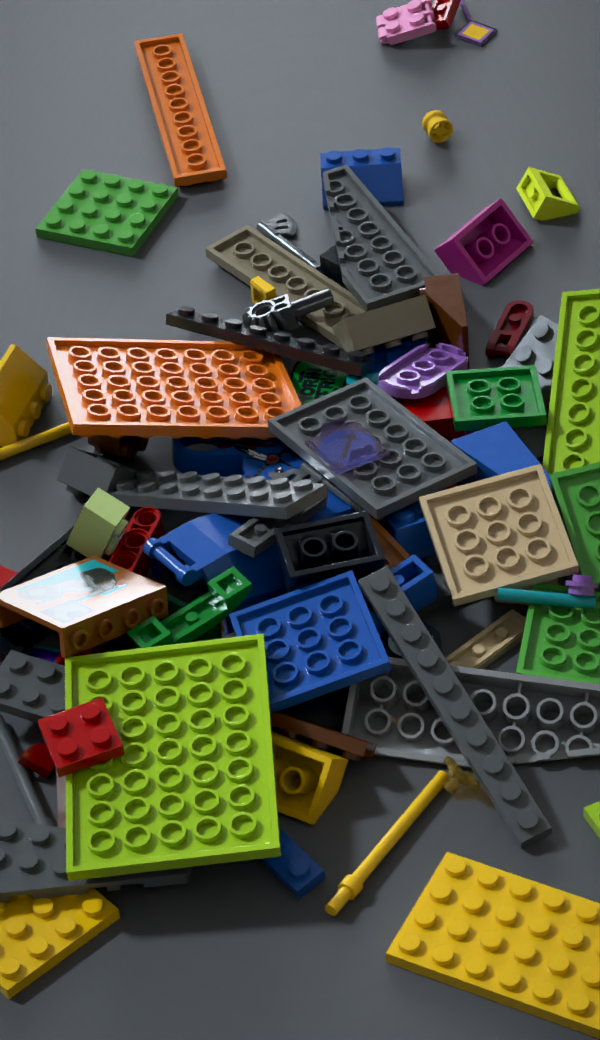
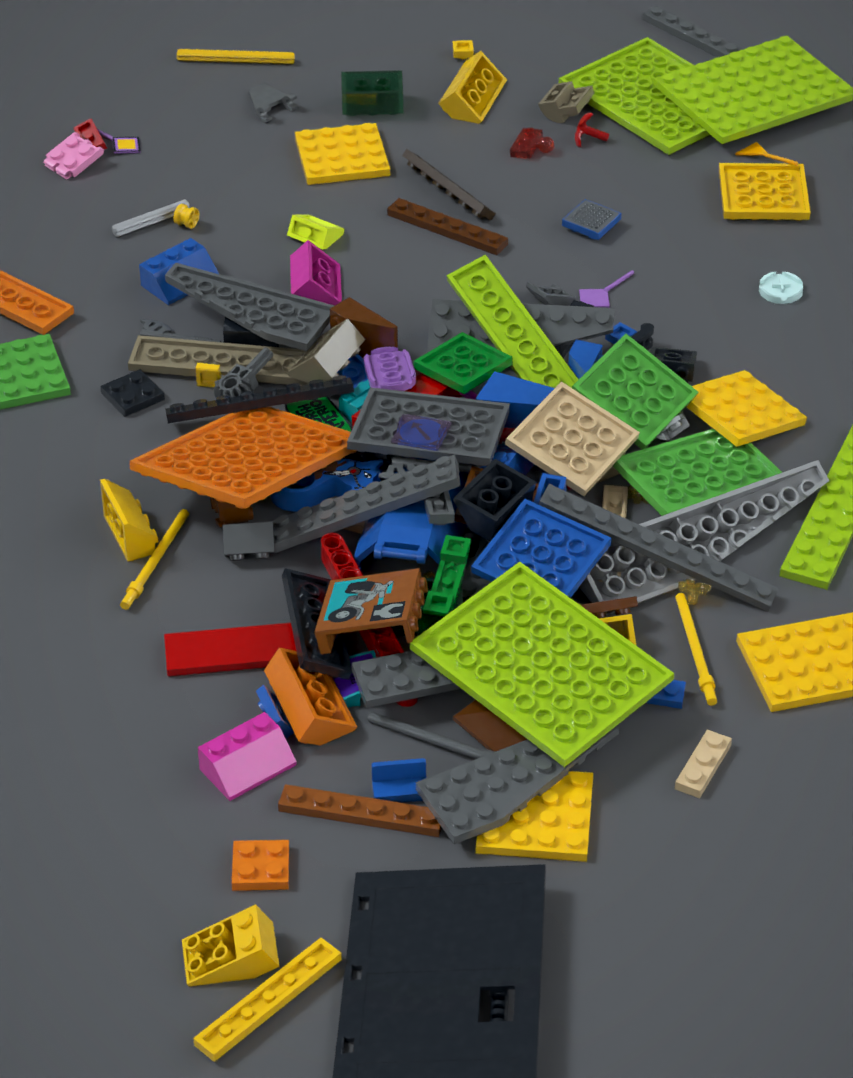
camera: 45 degrees left, 0 degrees up
(37, 759) = (434, 721): red tile -> none
(80, 737) = (482, 680): red plate -> none
(98, 525) = (315, 560): yellowish green brick -> none
(183, 280) = (132, 392): none -> black plate
(241, 972) = (703, 763): none -> tan plate
(400, 114) = (146, 219): none -> light grey axle
(510, 329) = (396, 314): dark red plate -> none
(546, 598) = (635, 462): teal bar -> none
(581, 585) = (649, 444): medium lavender plate -> none

